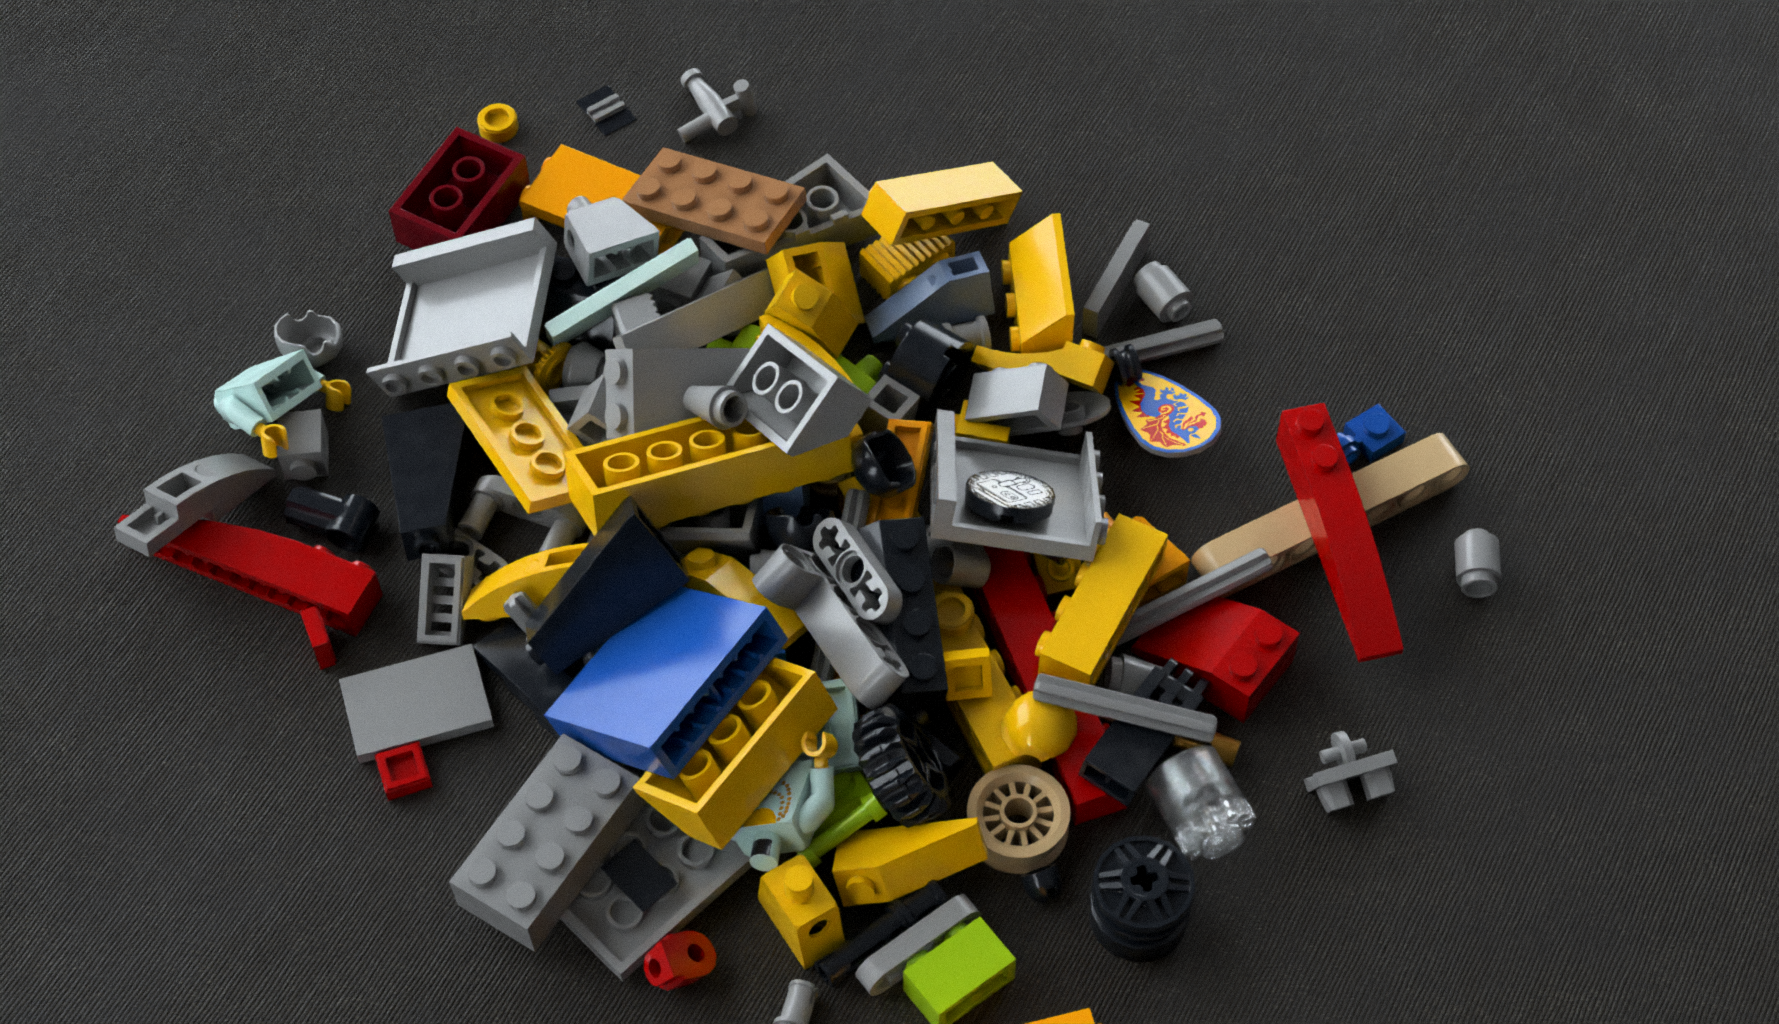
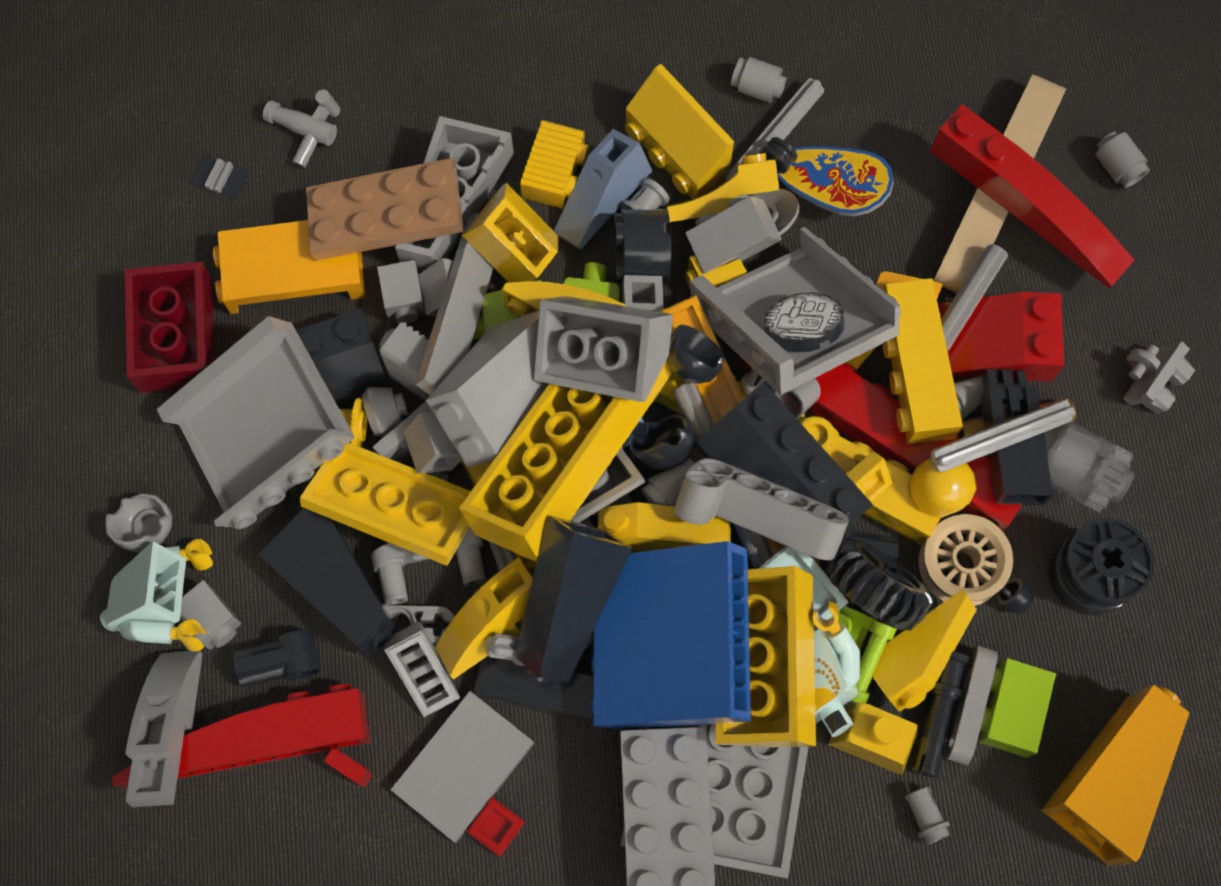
camera: 35 degrees left, 15 degrees up
(497, 122) = (142, 240): yellow tile -> none
(607, 238) = (327, 294): light grey torso -> none
(637, 282) = (376, 333): light aqua tile -> none
(638, 875) = (745, 794): black piece -> none
(679, 960) = (822, 837): red piece -> none
(719, 405) = (549, 391): light grey cone -> none
(813, 311) = (537, 260): yellow slope -> none
(873, 577) = (767, 478): light grey beam -> none
(941, 203) = (555, 107): yellow brick -> none
(1115, 278) = (716, 82): light grey tile -> none
(1371, 434) = (979, 98): blue plate -> none

